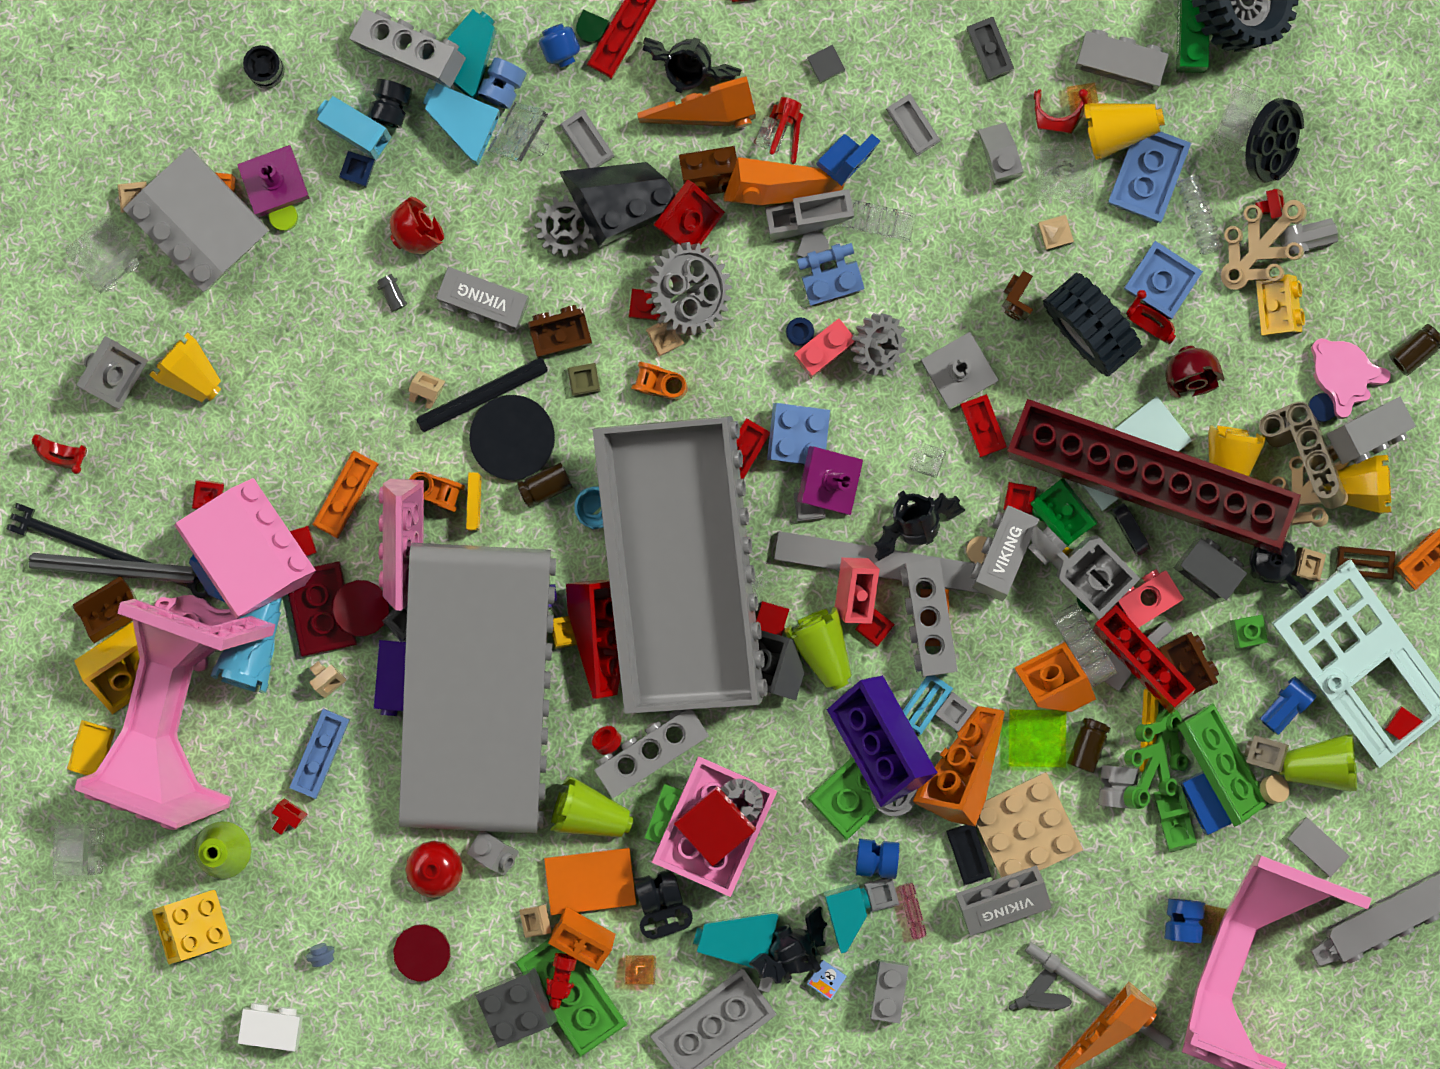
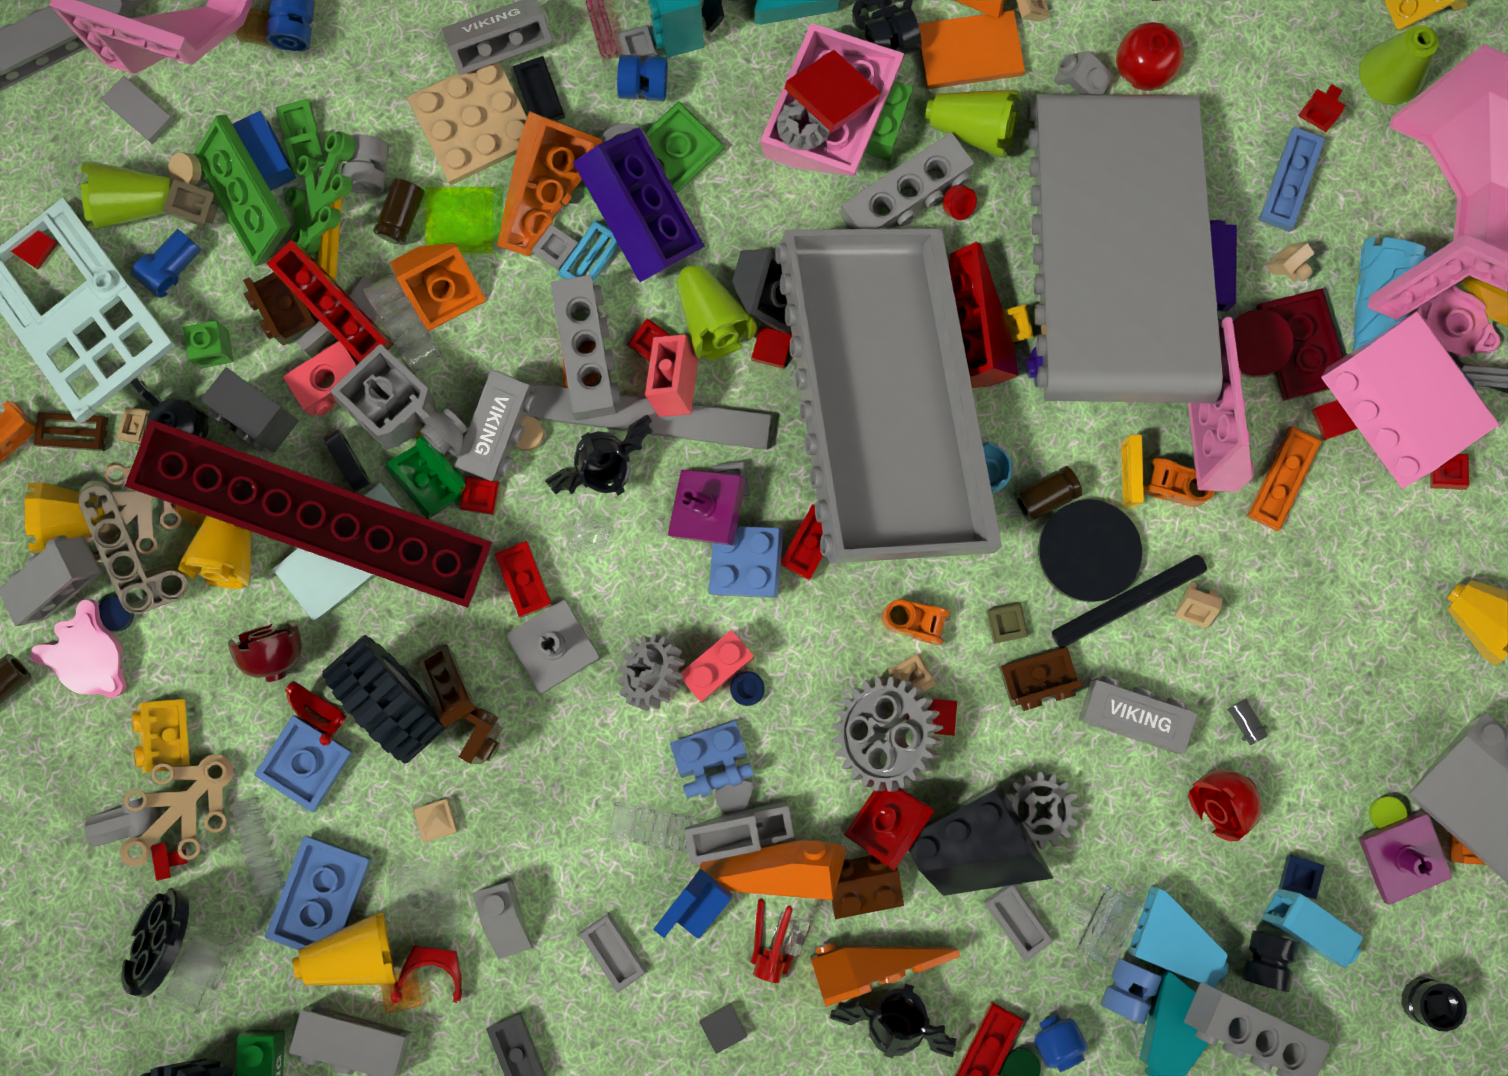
camera: 175 degrees right, 5 degrees down
(1045, 336) = (446, 685): none -> reddish brown tile

